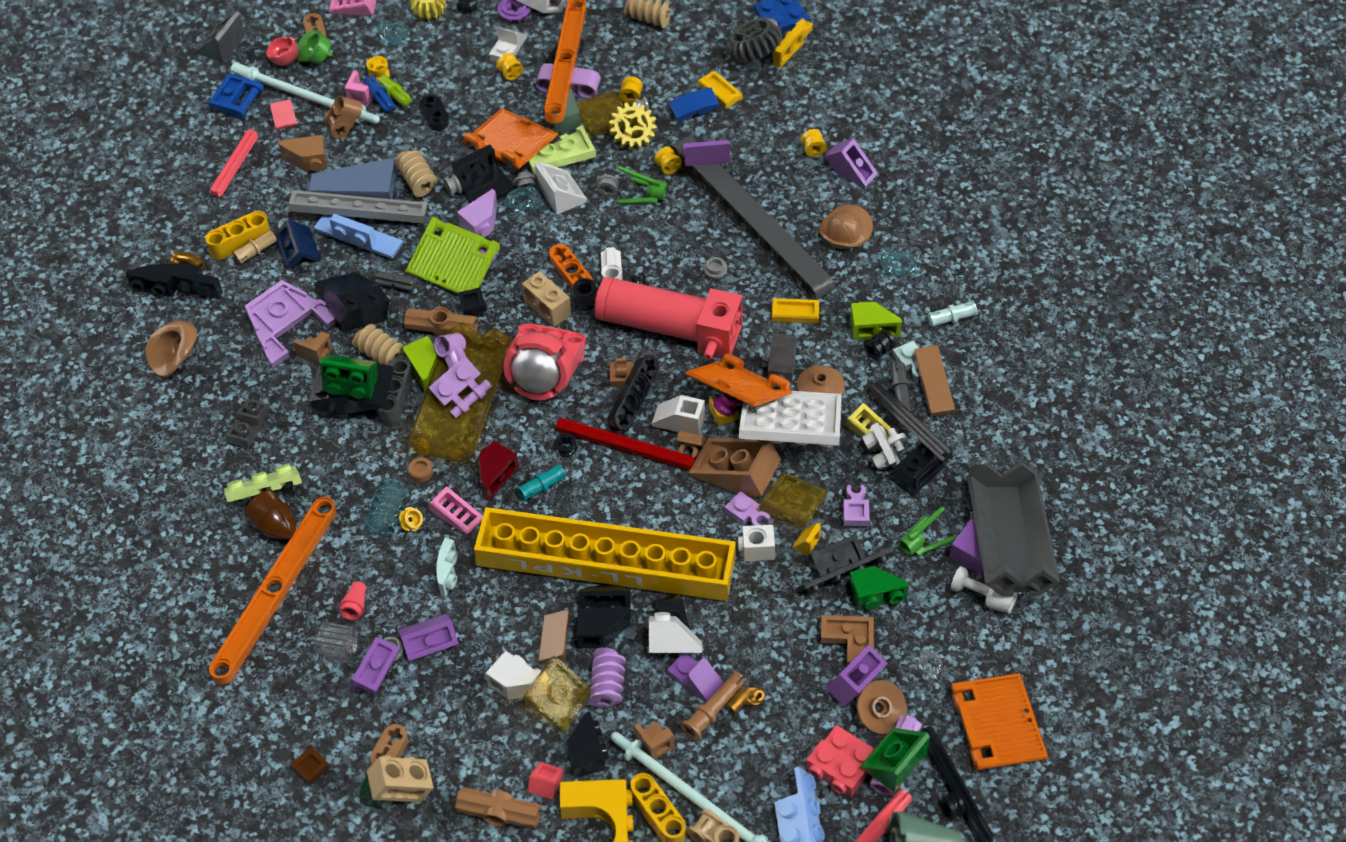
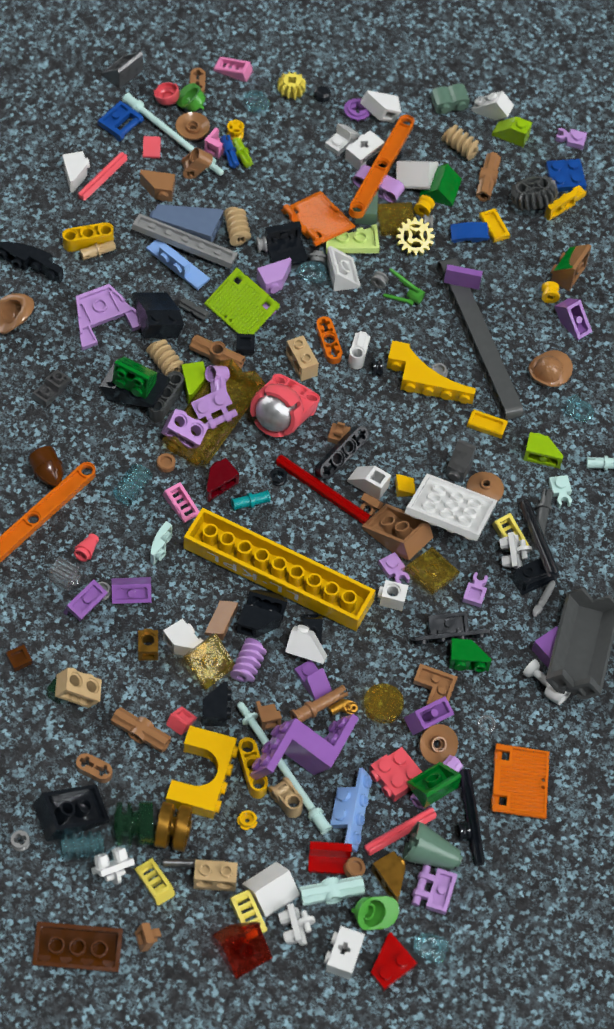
camera: 10 degrees right, 5 degrees up
(187, 257) = (48, 246): pearl gold arm -> none
(198, 163) = (75, 169): none -> white slope
(273, 481) = (55, 439): yellowish green wing -> none
(295, 243) = (129, 256): dark blue panel -> none
(313, 349) = (117, 345): medium nougat panel -> none
(325, 77) = (192, 126): none -> medium nougat dish
(384, 743) = (75, 660): medium nougat beam -> none
(415, 516) = (151, 498): yellow plate -> none
(431, 422) = (183, 432): none -> lavender brick
(434, 112) = (267, 176): black plate -> none
(476, 706) = (148, 652): none -> pearl gold brick
(509, 66) = (337, 158): yellow wheel -> none
(537, 48) = (363, 149): none -> white brick
(609, 57) = (416, 173): none -> white slope
(643, 61) = (444, 186): none -> green slope
(667, 160) = (432, 273): yellow wheel -> none
(693, 39) = (488, 176): none -> medium nougat piece
(697, 278) = (424, 380): none -> yellow arch
(708, 321) = (417, 413): coral piece -> none
(715, 762) = (303, 746): none -> medium lavender bracket
(726, 404) = (409, 480): magenta wheel -> none
(741, 382) = (423, 469): orange window -> none
(793, 678) = (383, 703): none -> clear yellow tile
(808, 539) = (431, 604): yellow slope -> none
(826, 106) = (570, 266): none -> medium nougat slope
(879, 344) = (540, 470): black bush -> none
(914, 540) = (508, 629): bright green plant -> none
(934, 380) = (571, 511): medium nougat tile -> none
(941, 489) = (543, 599): none -> light grey piece

